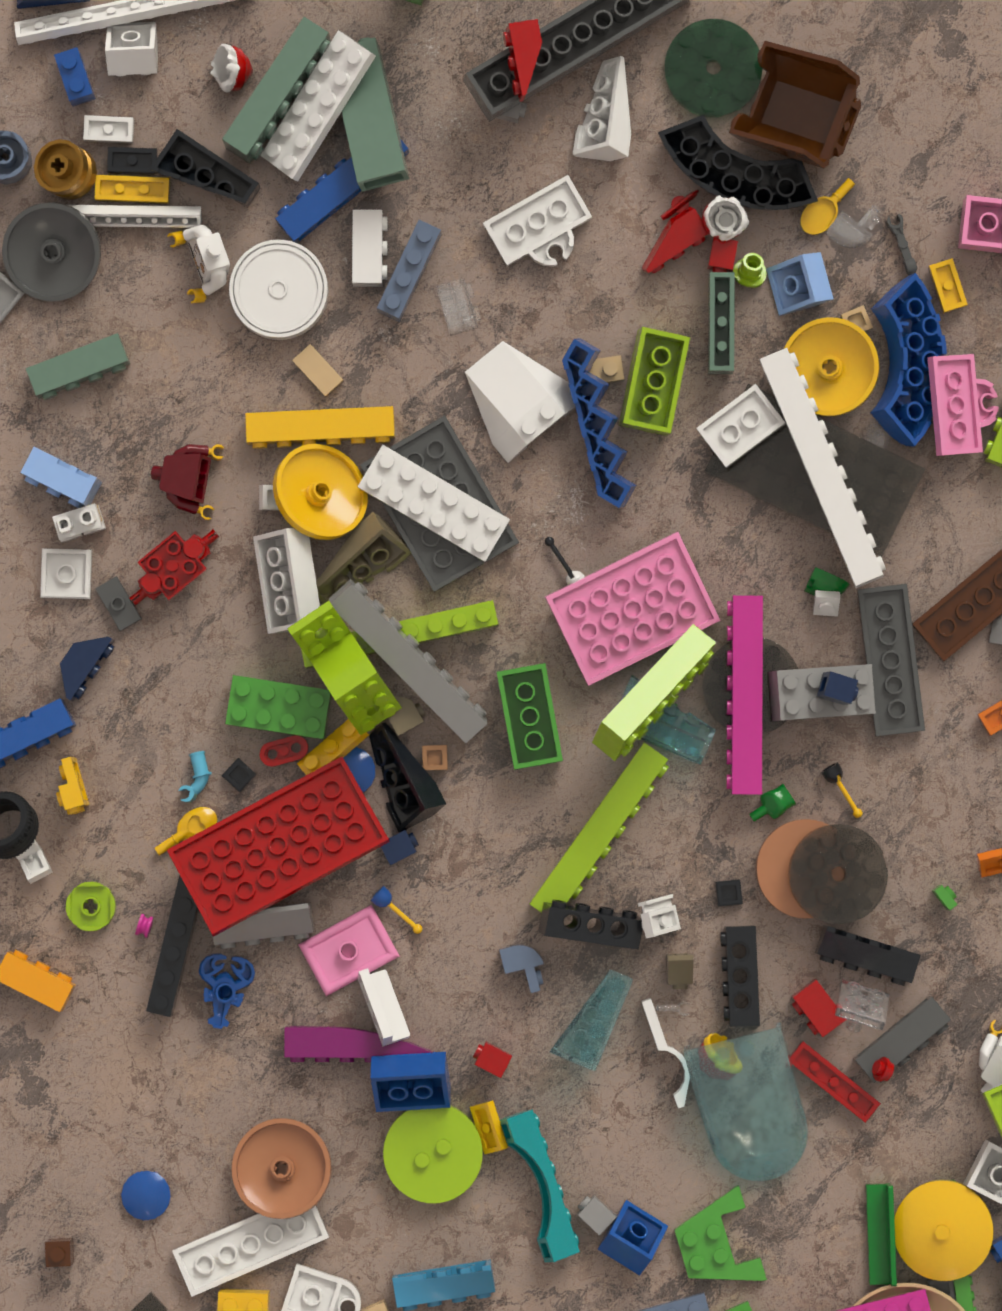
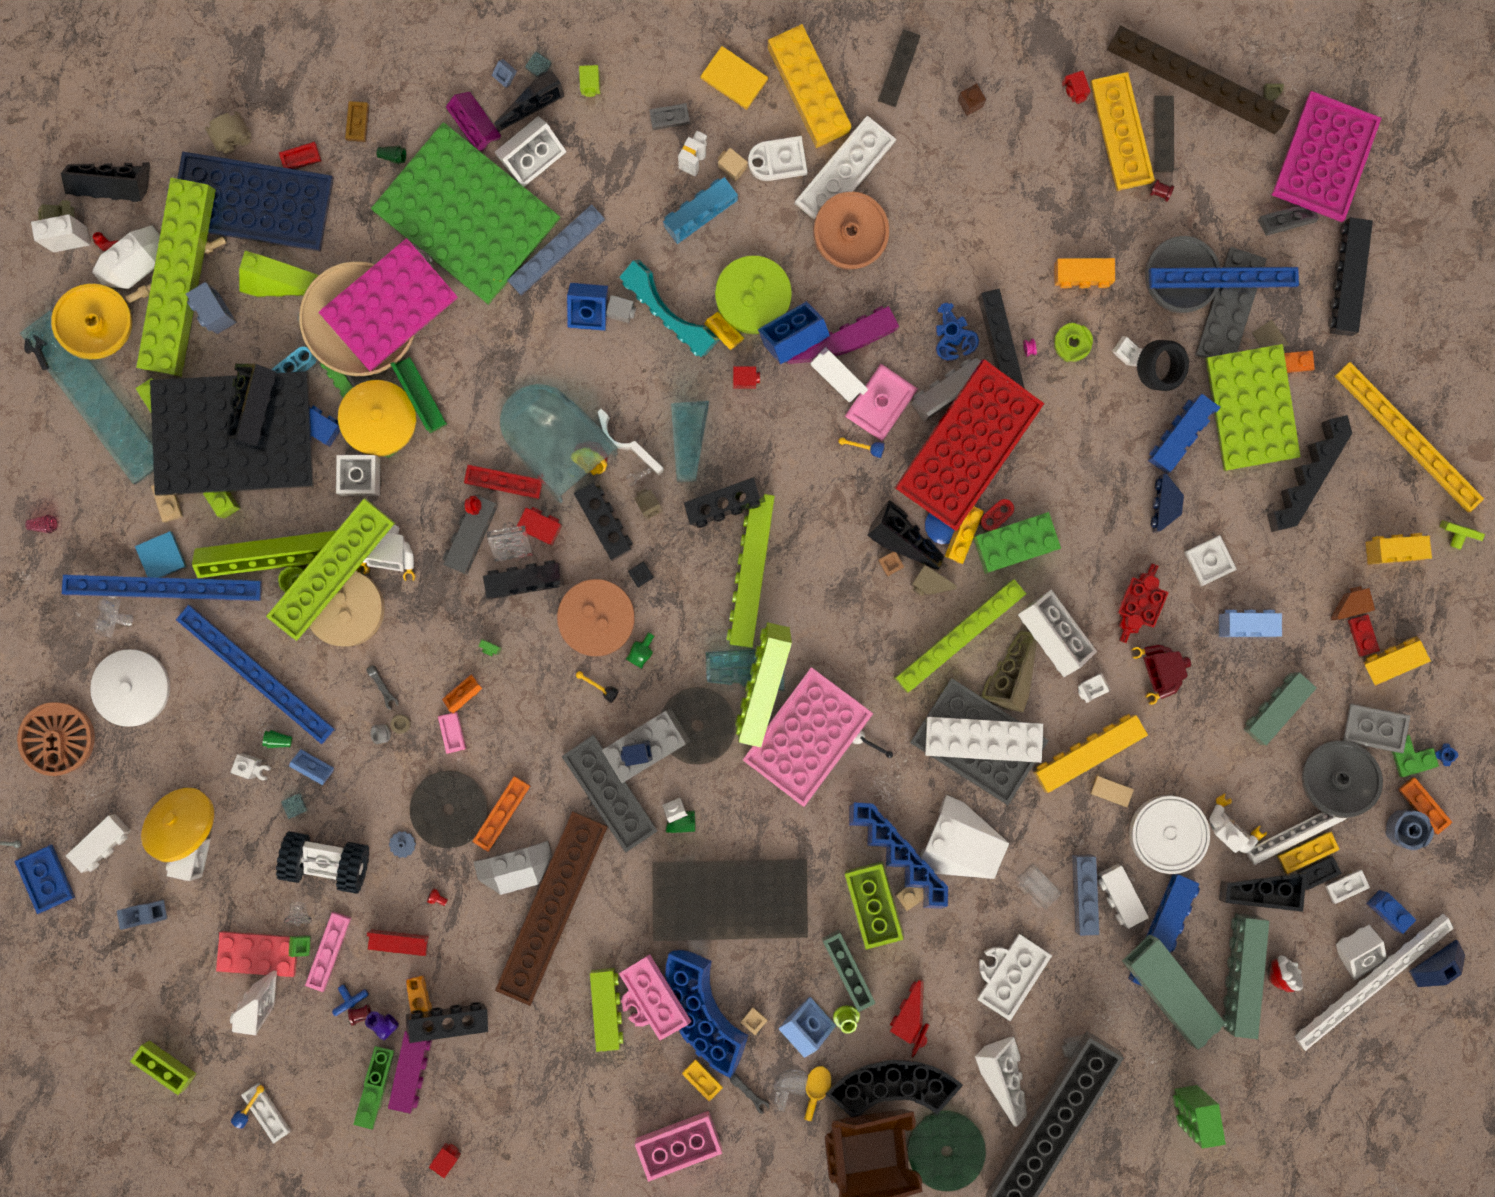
camera: 145 degrees right, 0 degrees up
(65, 169) = (1364, 842): pearl gold wheel -> none
(73, 794) = (1126, 411): yellow plate -> none
(78, 521) = (1221, 600): white hips -> none
(118, 603) = (1163, 558): dark grey plate -> none
(145, 1195) = (933, 168): blue dish -> none
(188, 826) = (1035, 431): yellow piece -> none
(201, 776) = (1045, 470): medium azure piece -> none
(239, 775) = (1018, 483): black tile -> none
(318, 105) = (1212, 980): white plate -> none
(319, 491) = (1068, 706): yellow dish -> none
(344, 668) = (989, 590): lime bracket -> none
(400, 847) = (883, 489): dark blue brick -> none
(408, 660) = (946, 619): light grey brick -> none
(523, 957) = (758, 457): sand blue brick -> none
(524, 46) = (1092, 1100): red slope -> none
(529, 716) = (840, 625): bright green brick -> none
(659, 916) = (680, 532): white plate -> none
(706, 1245) = (534, 326): bright green wing -> none
(722, 255) = (872, 1020): red brick -> none
(724, 218) = (884, 1047): white hair -> none
(741, 426) = (797, 904): white plate -> none
(746, 695) = (698, 717): dark pink brick -> none
(821, 467) = (728, 905): white brick -> none
(836, 363) = (756, 979): yellow dish -> none
(863, 870) = (552, 630): clear smoke plate -> none

